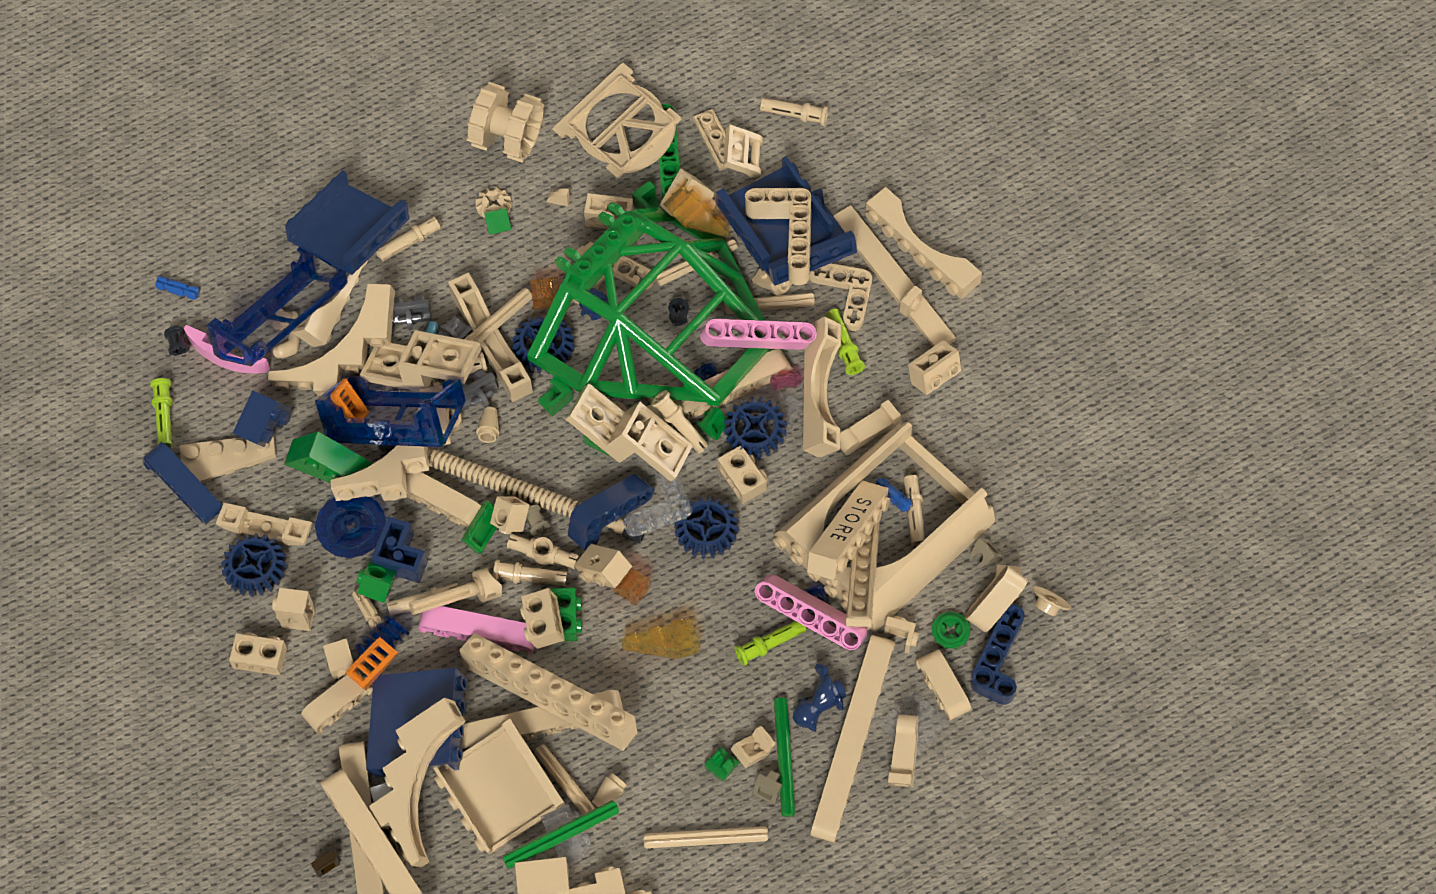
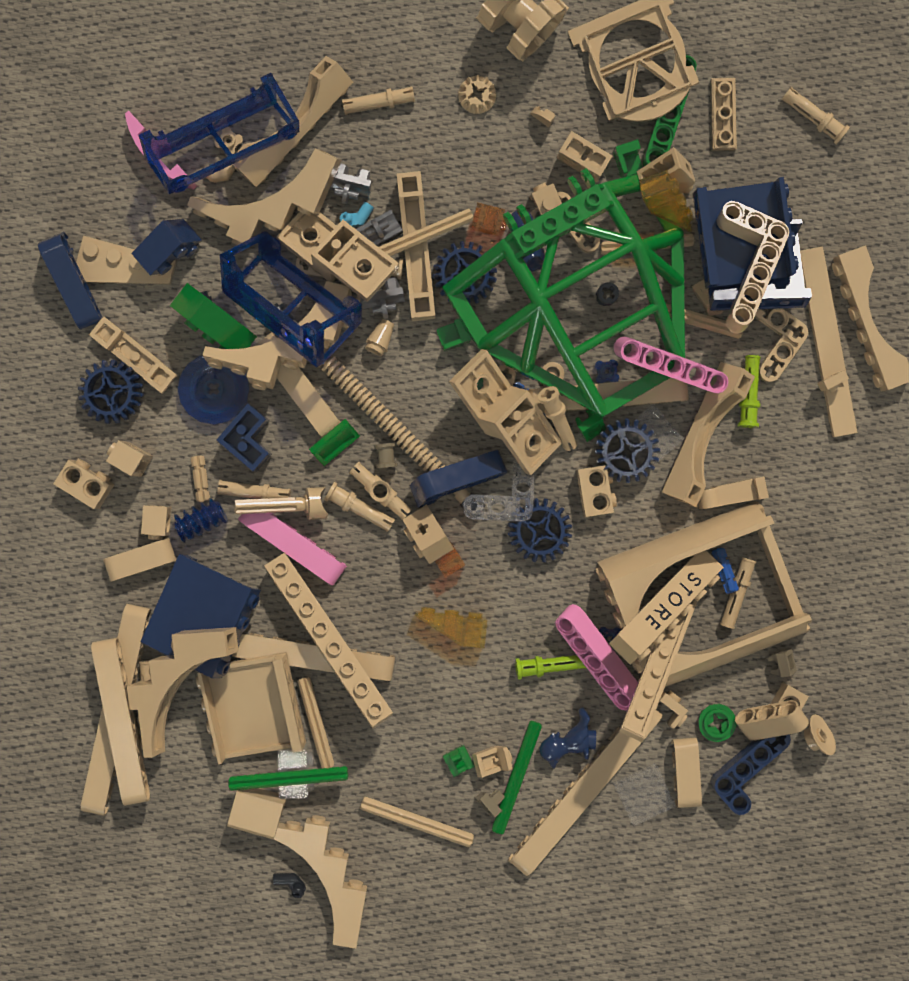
camera: 15 degrees right, 25 degrees up
(162, 403) = (80, 181): lime pin -> none
(176, 340) = (112, 127): black bush -> none
(177, 287) = (137, 59): blue axle -> none
(325, 863) = (75, 710): dark brown tile -> none
(345, 224) = (317, 69): dark blue panel -> none
(356, 404) = (254, 266): orange slope -> none
(365, 657) = (162, 556): orange slope -> none
(375, 582) = (208, 465): green brick -> none
(379, 791) = (143, 668): white sticker -> none
(497, 220) = (473, 117): green tile -> none
(509, 514) = (363, 443): tan brick -> none
(546, 617) = (357, 569): tan brick -> none
(569, 613) = (368, 560): green brick -> none
(610, 789) = (349, 746): tan cone -> none
(736, 151) = (739, 139): tan plate -> none
(791, 379) = (674, 410): clear pink pin -> none
(904, 752) = (622, 824): tan leg -> none
(934, 367) = (823, 460): tan brick -> none

